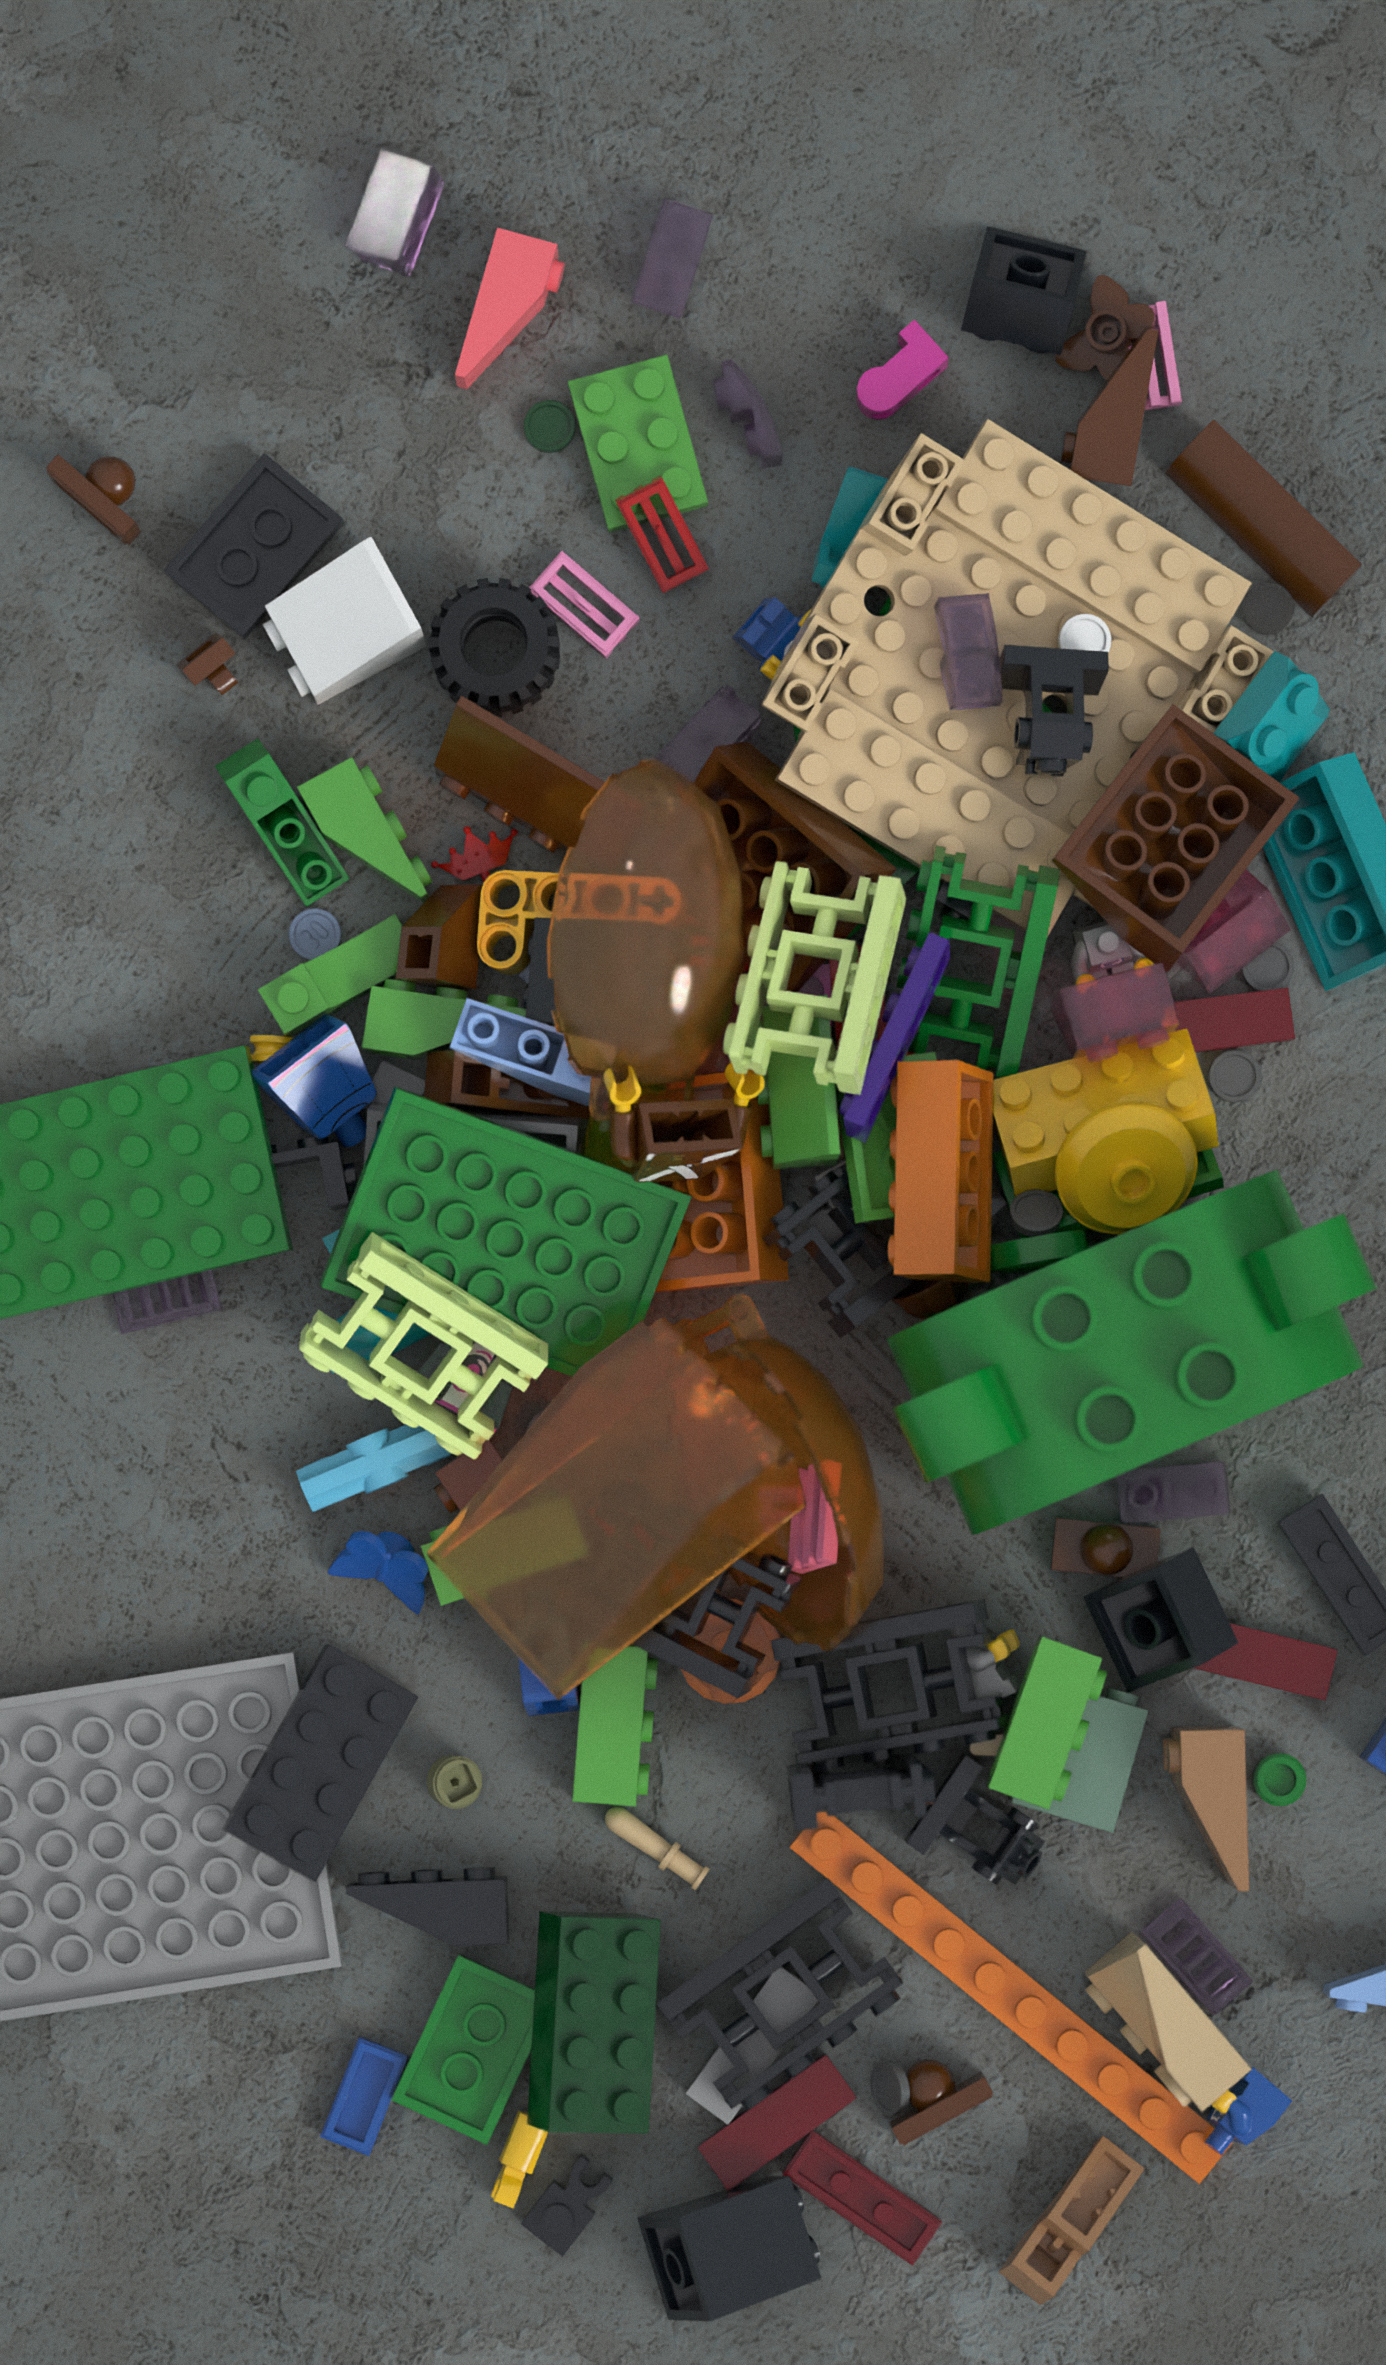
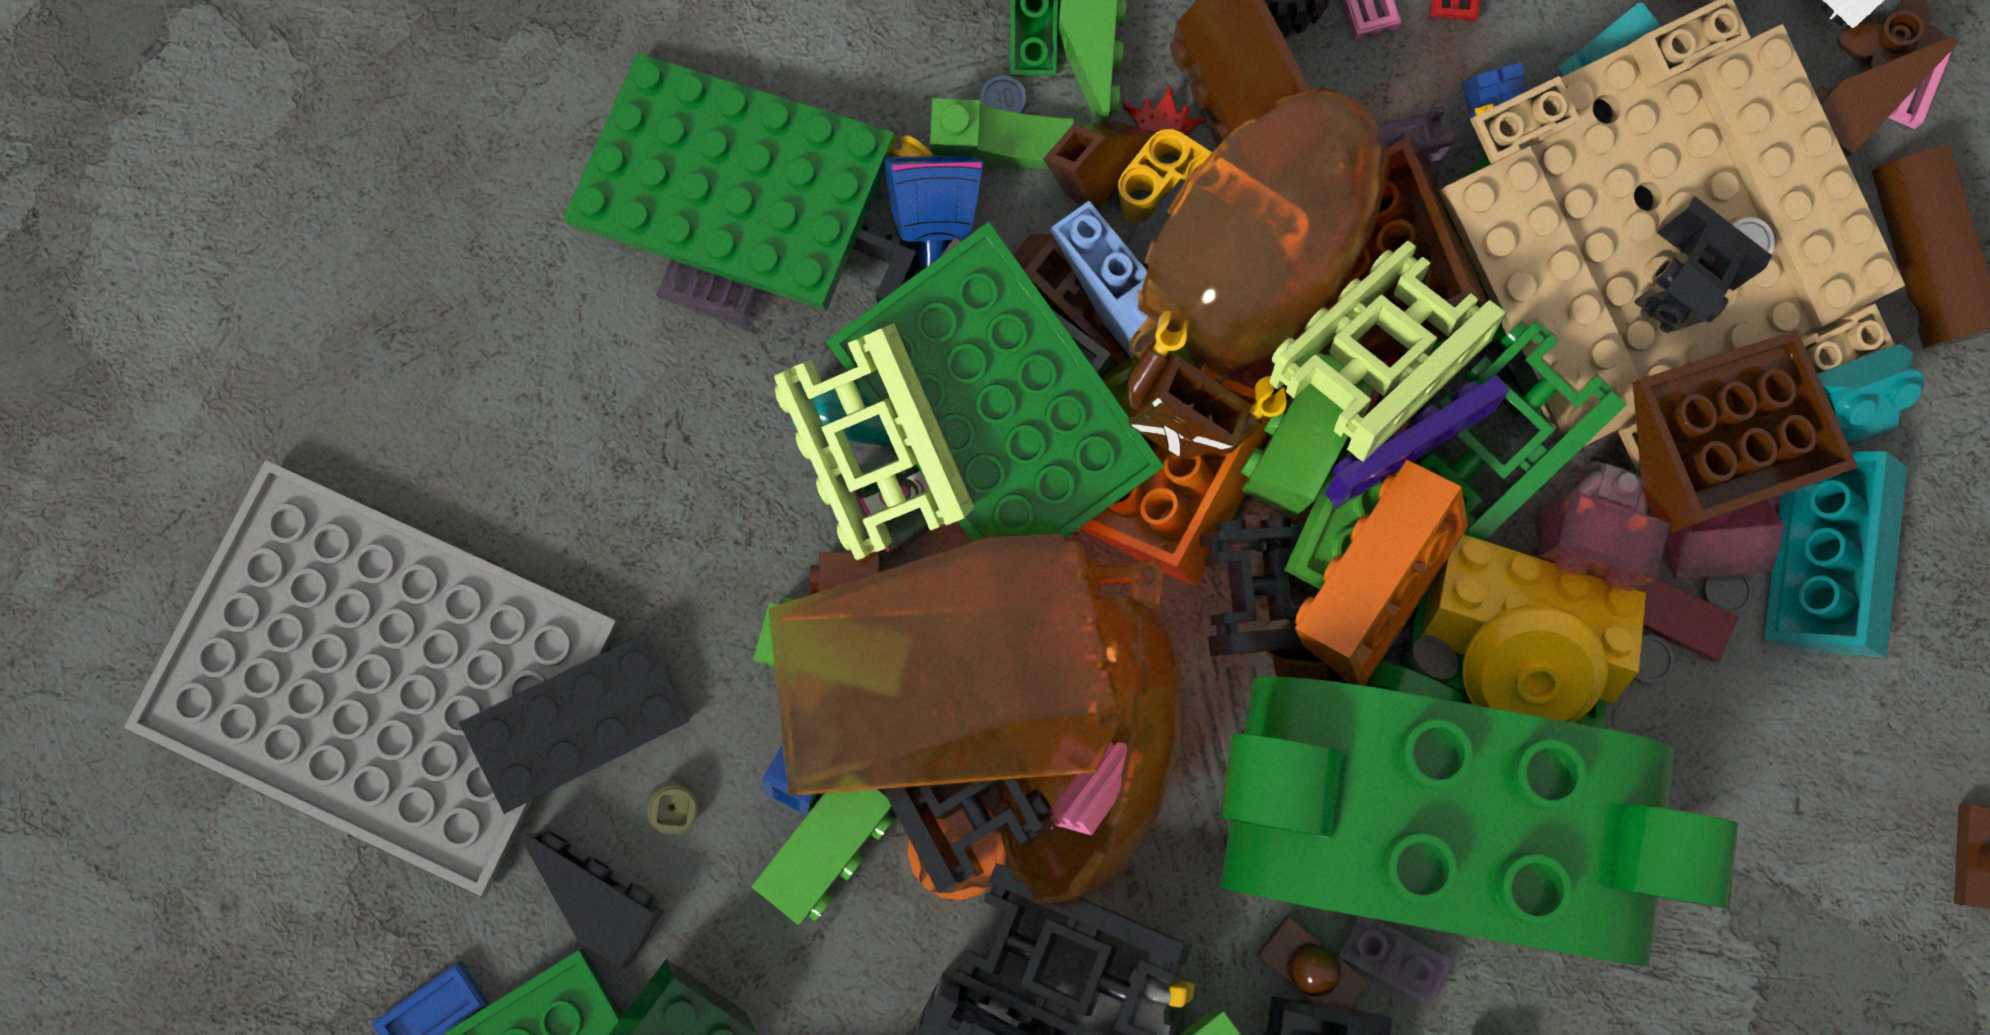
camera: 30 degrees right, 5 degrees down
(369, 1465) = (773, 515): medium azure piece -> none
(389, 1560) = (738, 597): blue animal -> none
(416, 1023) = (1029, 200): bright green slope -> none
(644, 1838) = (791, 957): tan piece -> none
(970, 651) = (1659, 189): clear purple slope -> none

